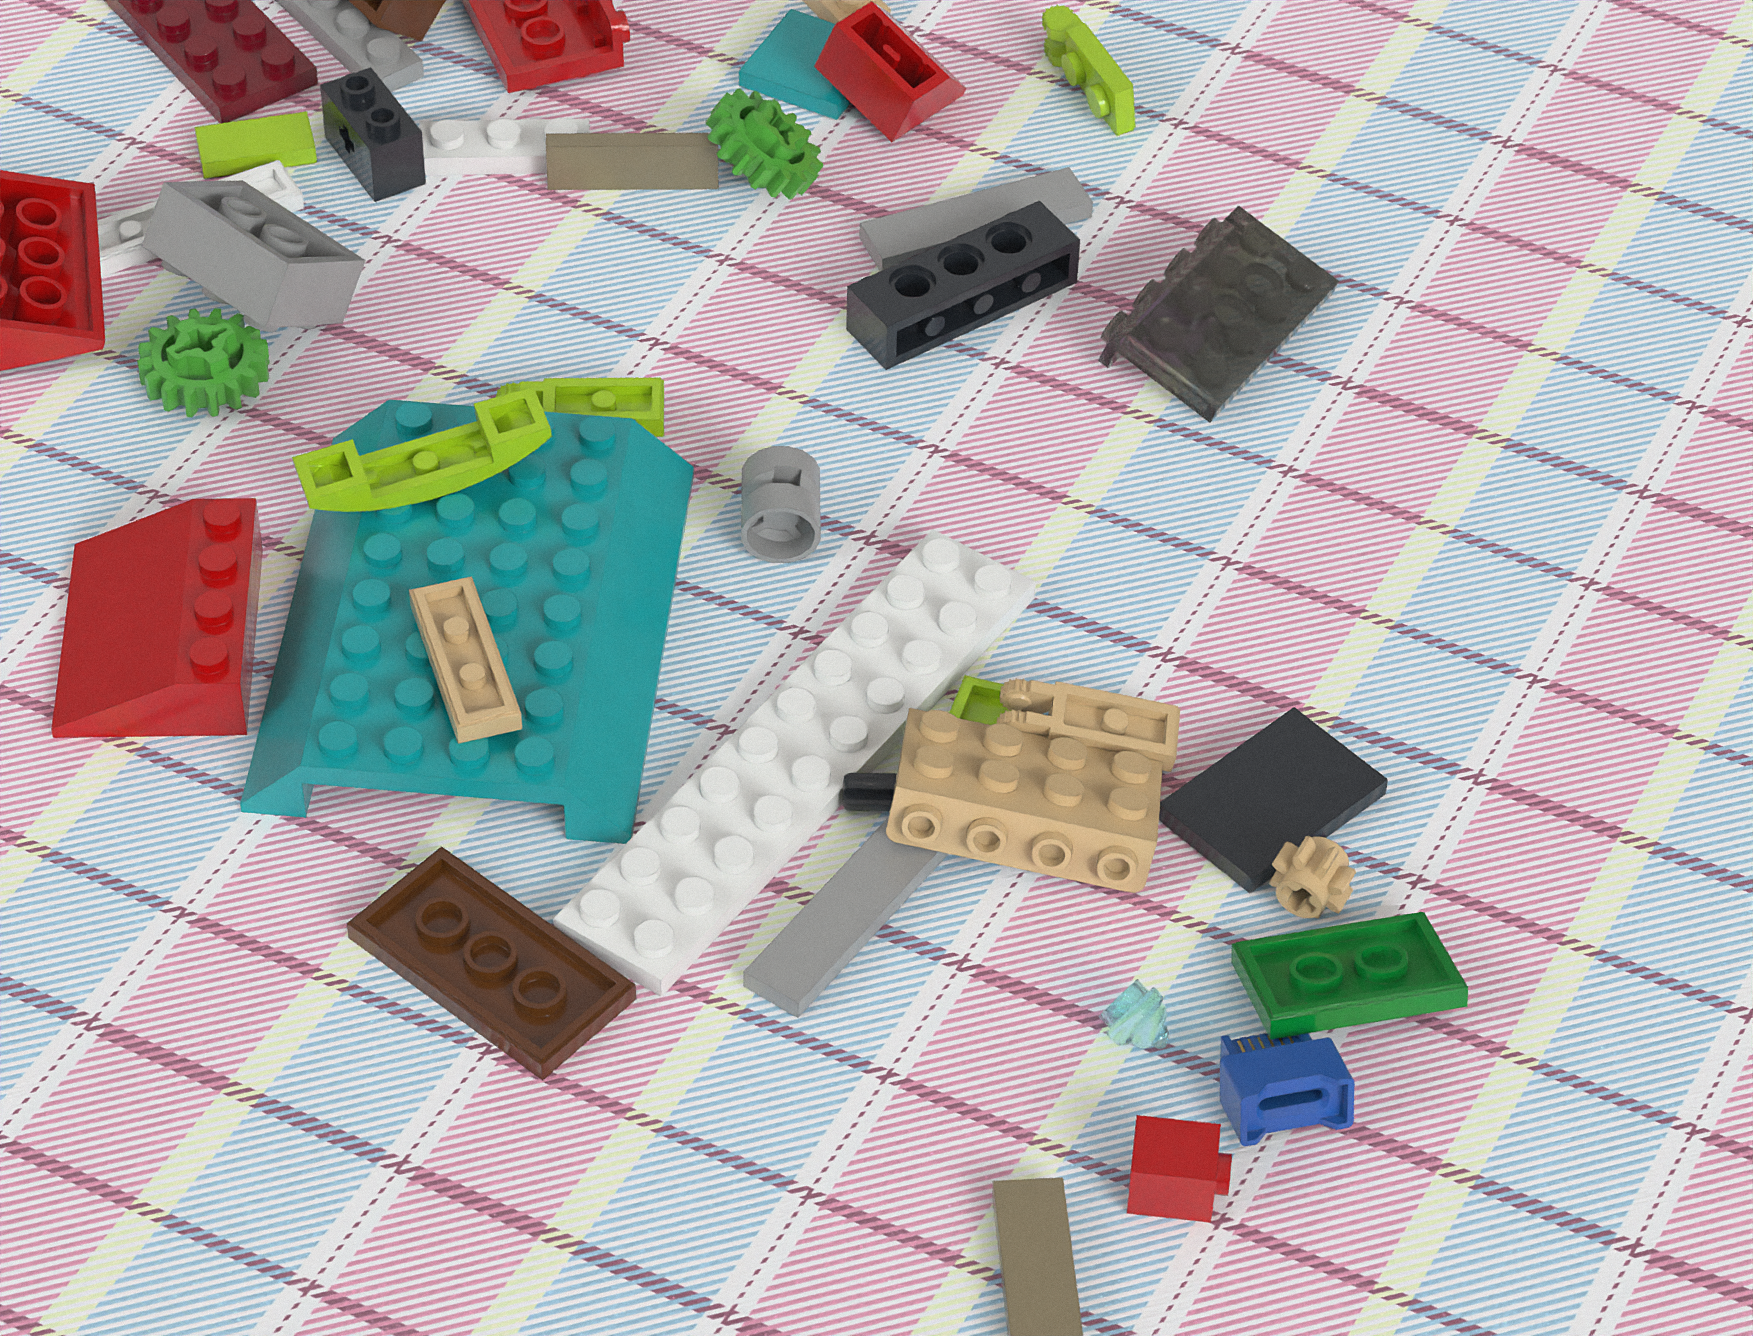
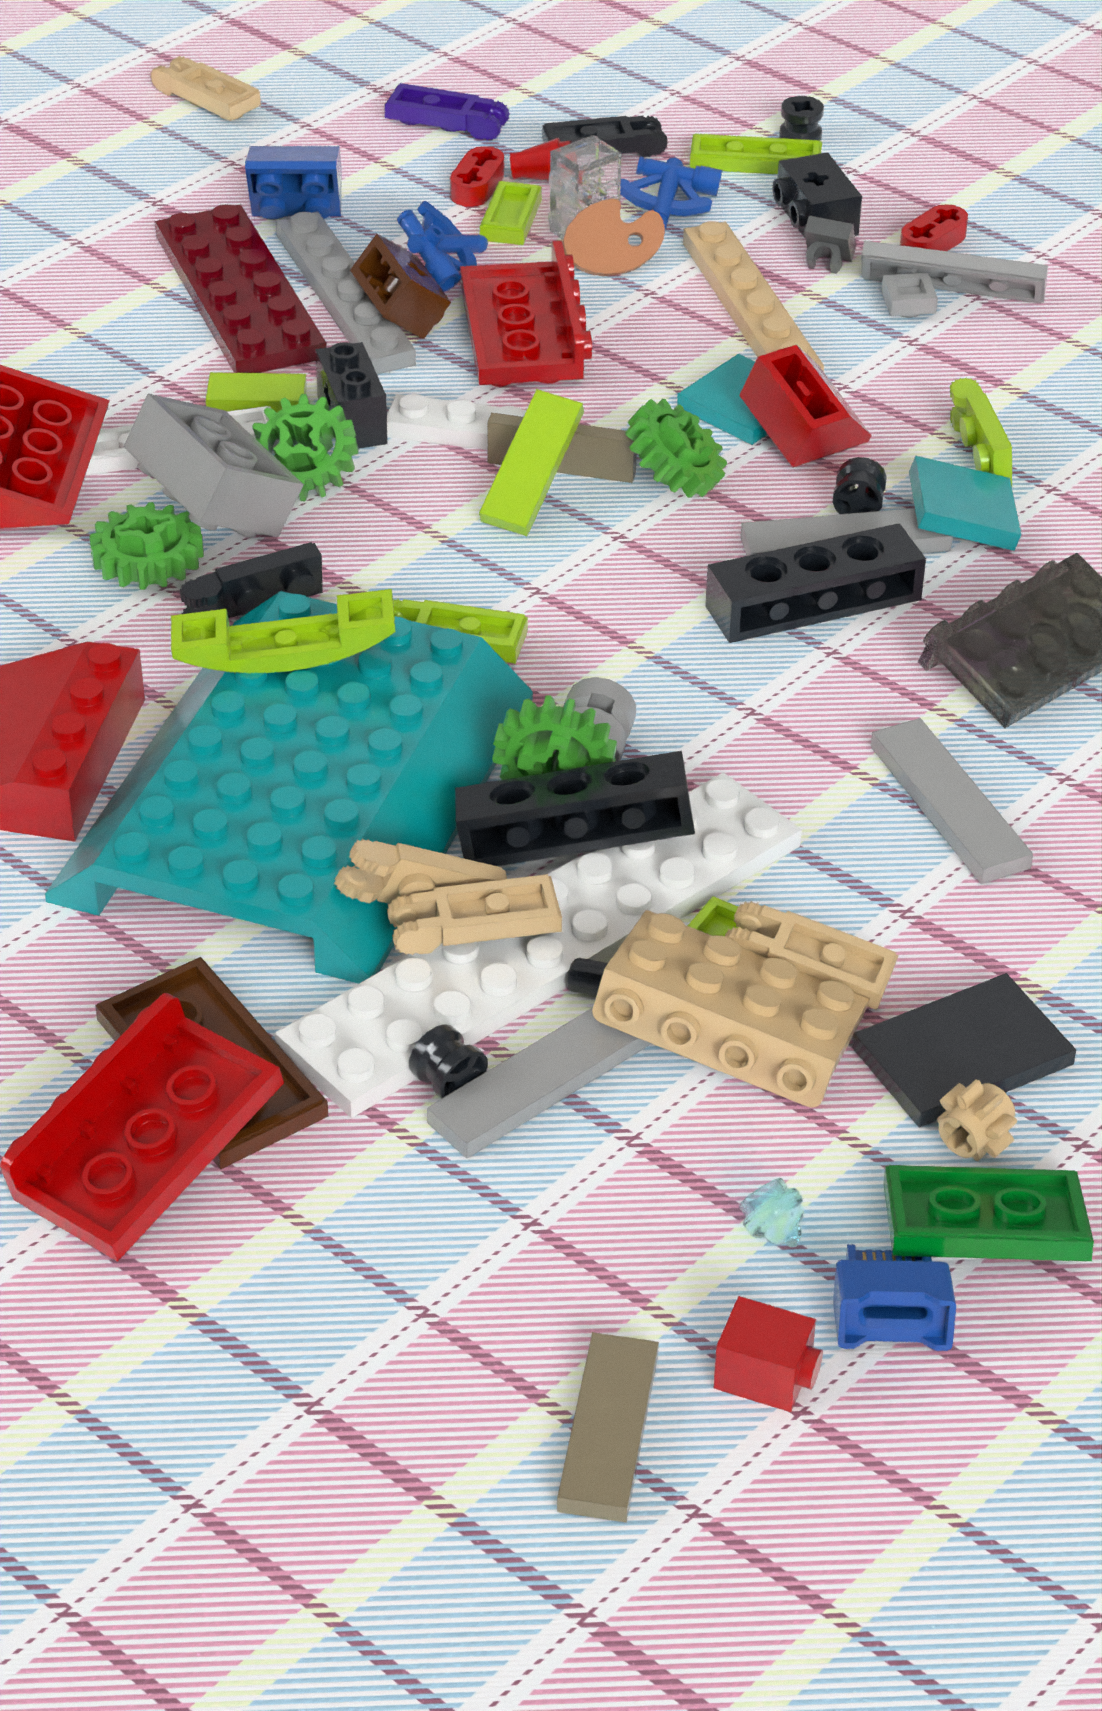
camera: 15 degrees right, 5 degrees down
(342, 393) = (253, 581): none -> black hinge
(346, 183) = (308, 428): none -> bright green gear
(453, 1056) = (137, 1128): none -> red bracket
(465, 660) = (261, 801): tan tile -> none
(609, 188) = (531, 462): none -> lime tile
(662, 718) = (405, 869): none -> tan hinge
(731, 745) = (475, 913): none -> tan hinge
(749, 916) = (445, 1060): none -> black wheel
(754, 541) = (529, 738): none -> bright green gear
(796, 606) = (574, 810): none -> black brick
(987, 169) = (868, 494): none -> black wheel
(1095, 159) = (964, 503): none -> teal tile
(1179, 518) = (951, 801): none -> light grey tile

